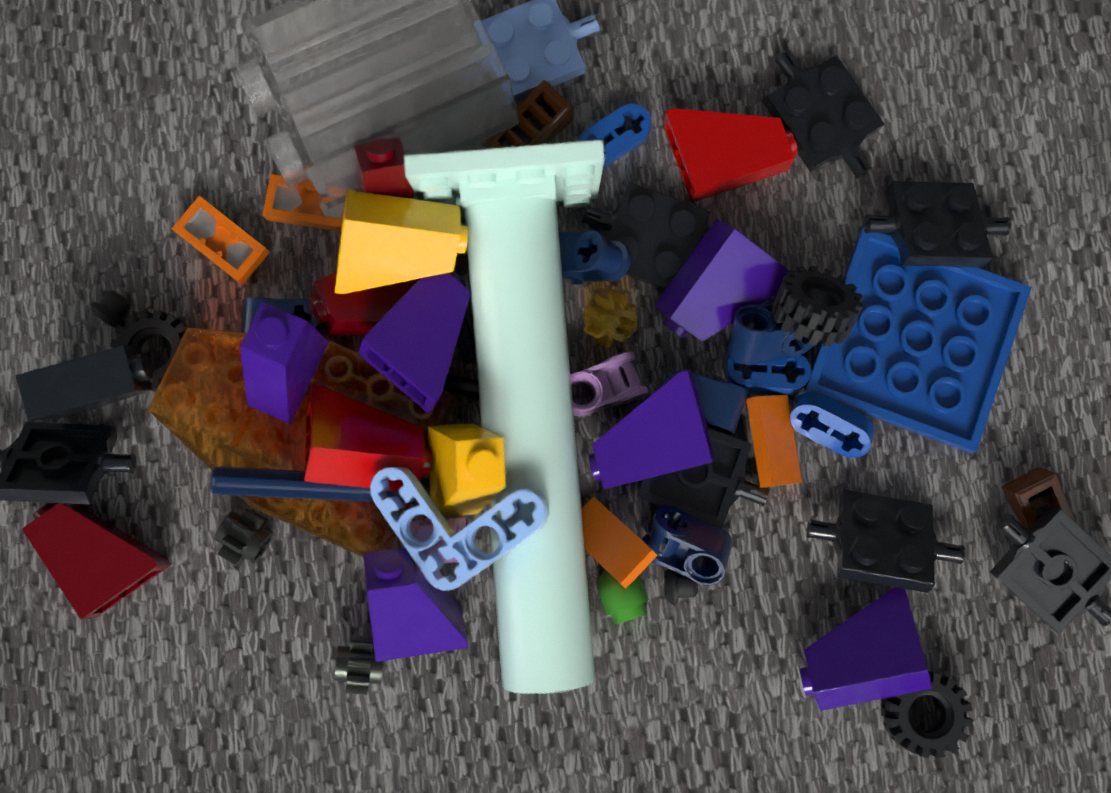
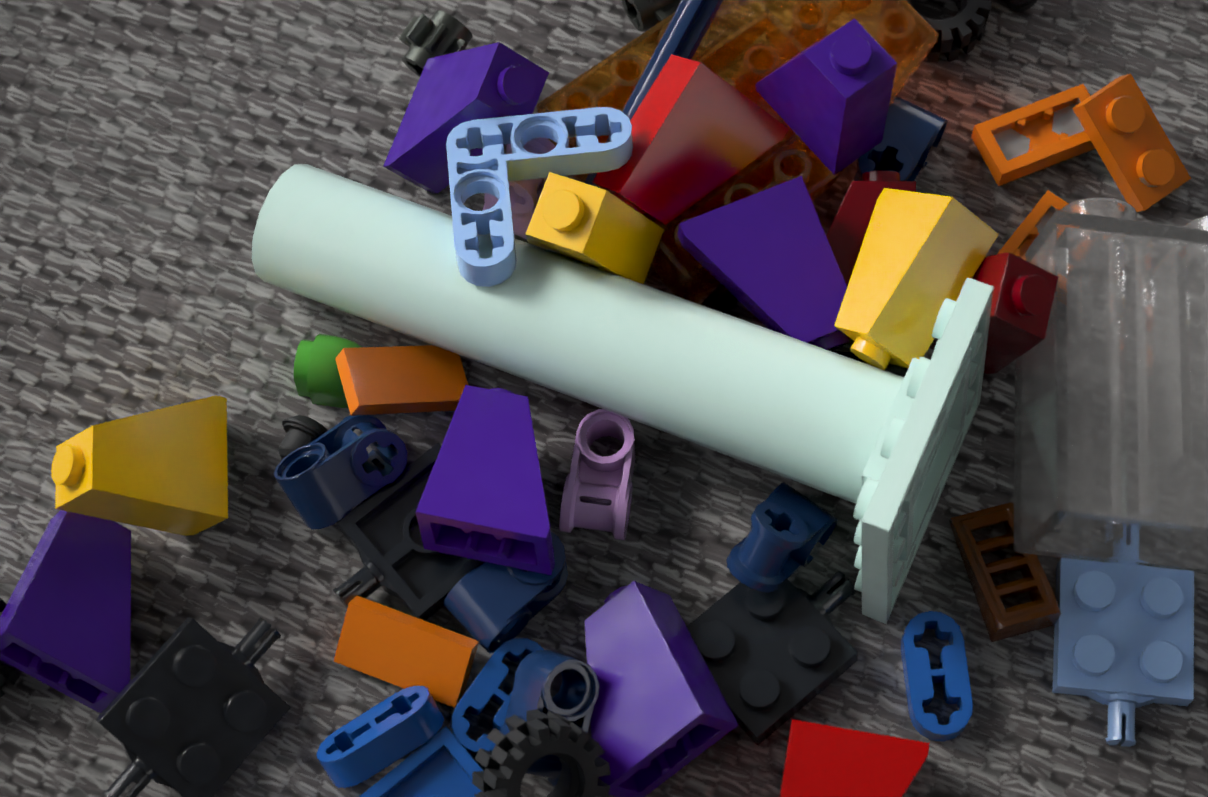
camera: 120 degrees right, 15 degrees down
(201, 179) = (1131, 143): none -> orange piece
(610, 318) = (683, 529): clear yellow gear -> none
(761, 662) = (150, 468): none -> yellow slope

